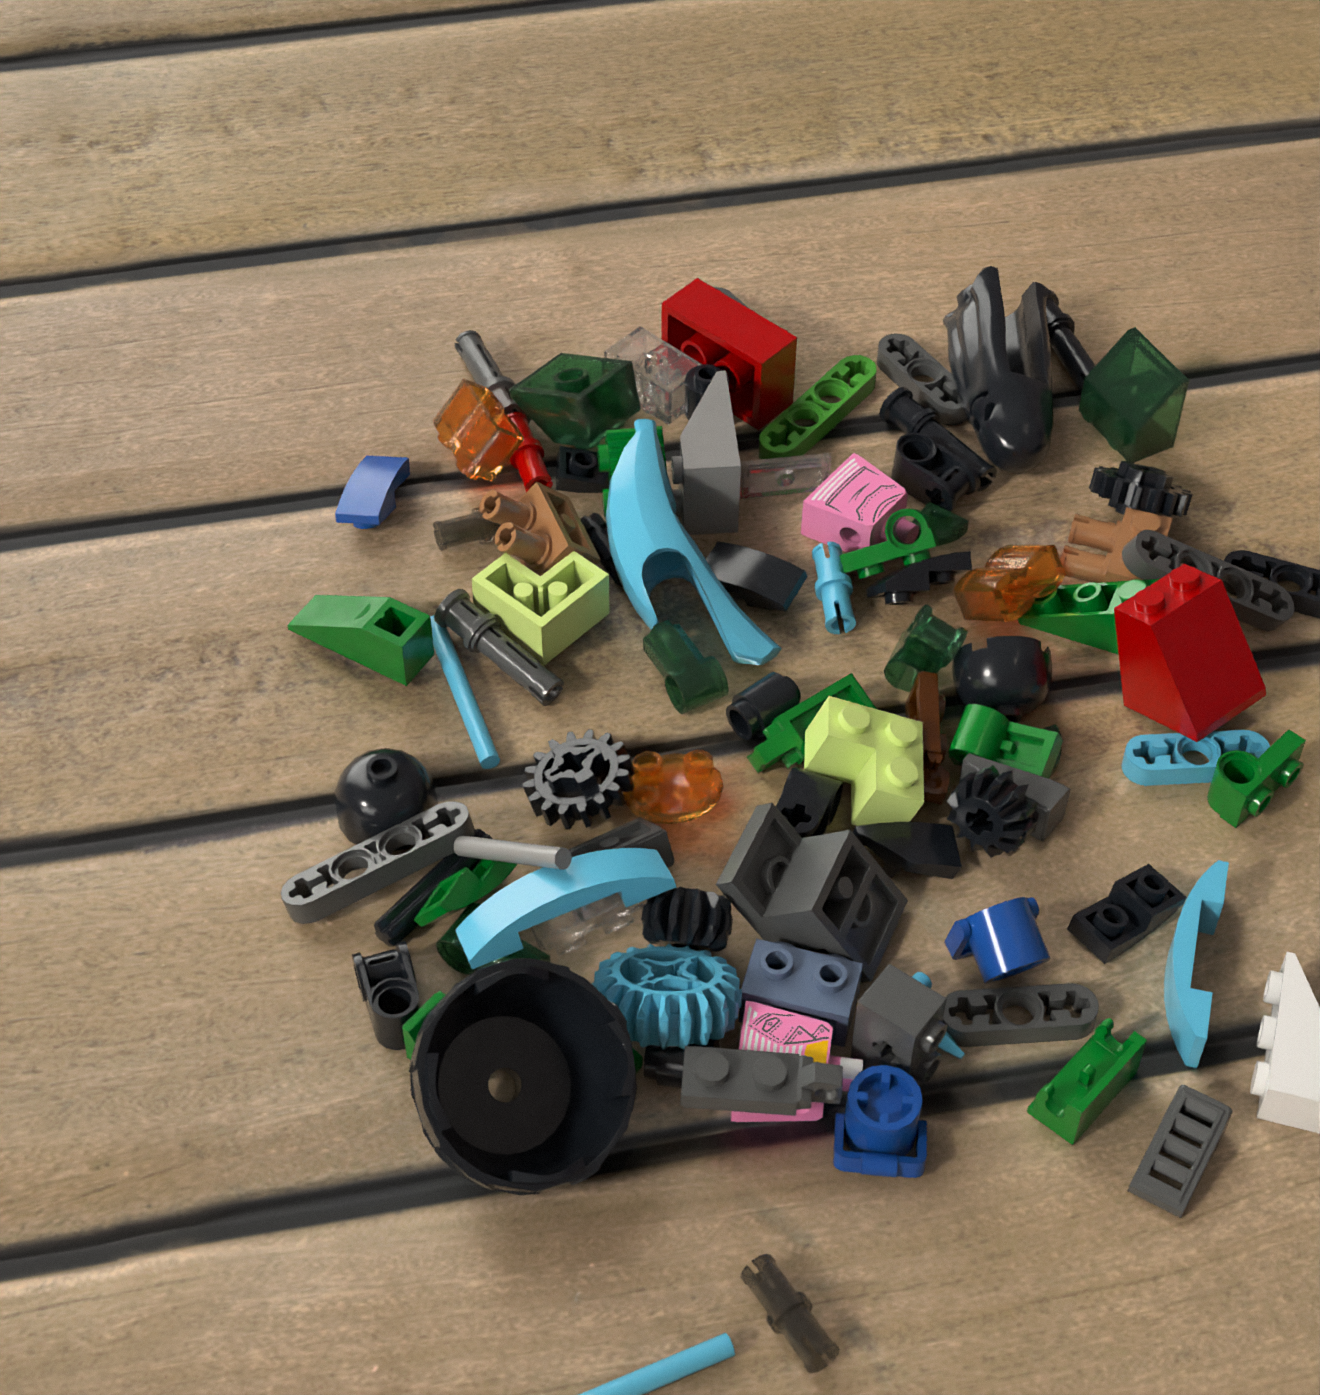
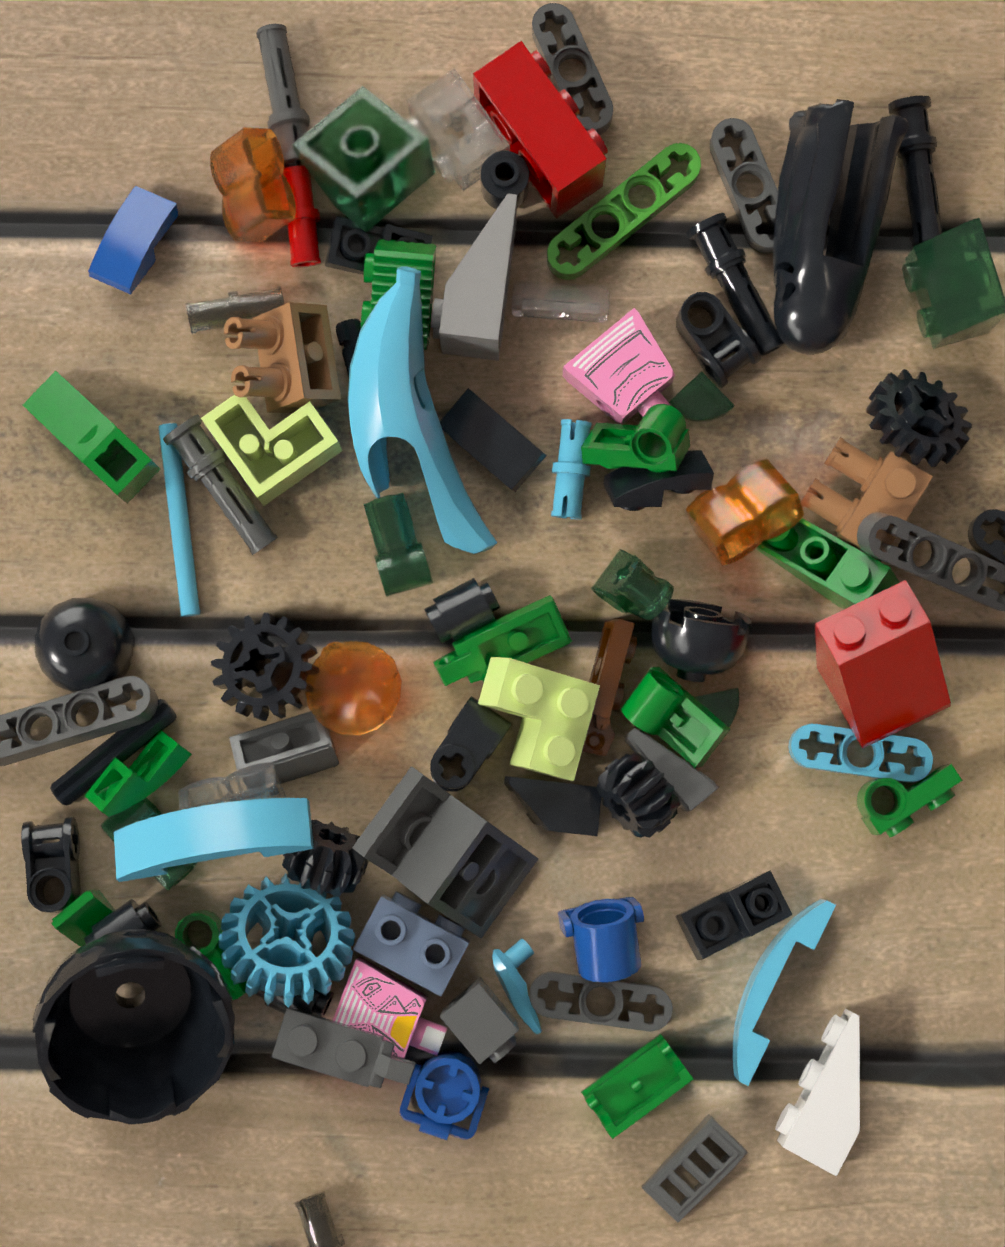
camera: 15 degrees right, 35 degrees up
(513, 852) = (175, 772): light grey bar -> none

